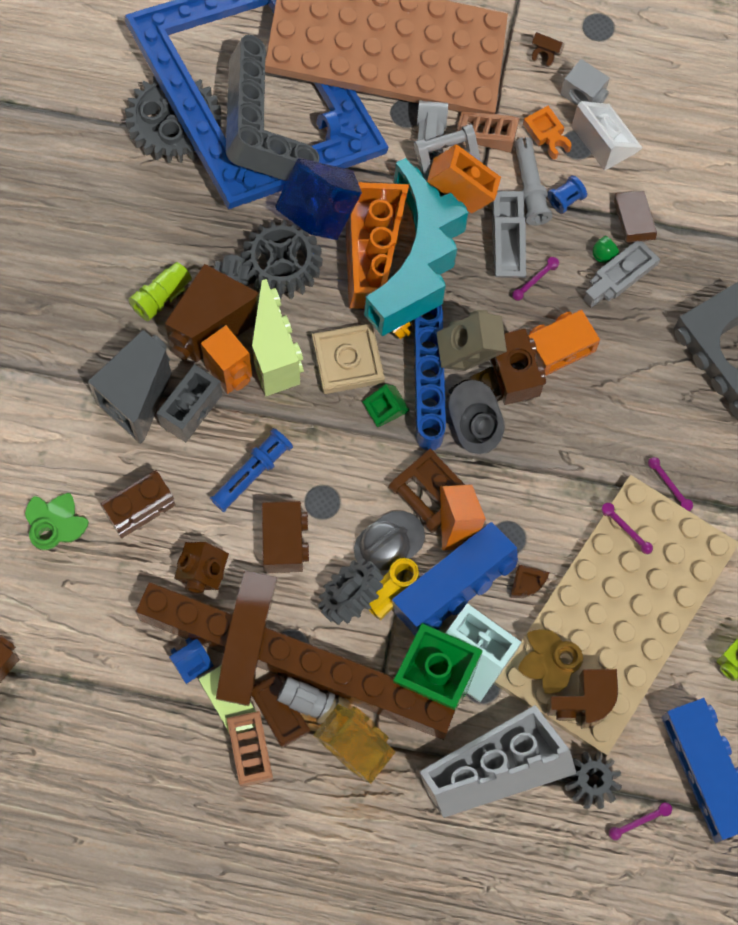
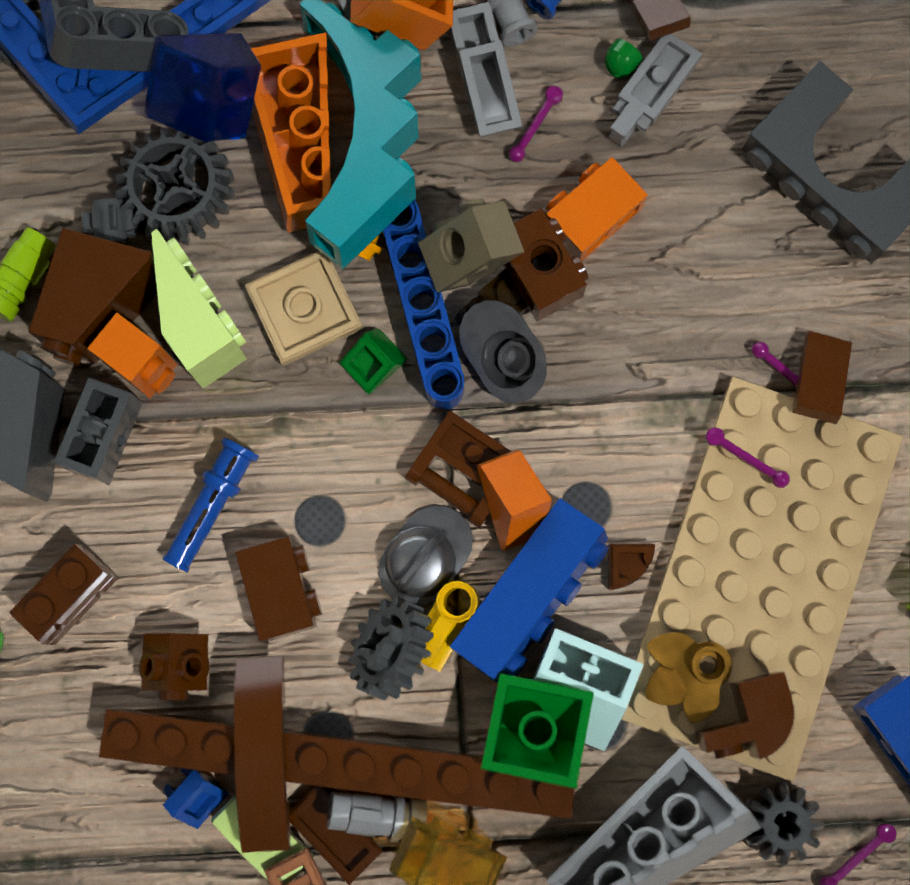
camera: 10 degrees left, 10 degrees up
(692, 489) = (822, 377): none -> reddish brown tile

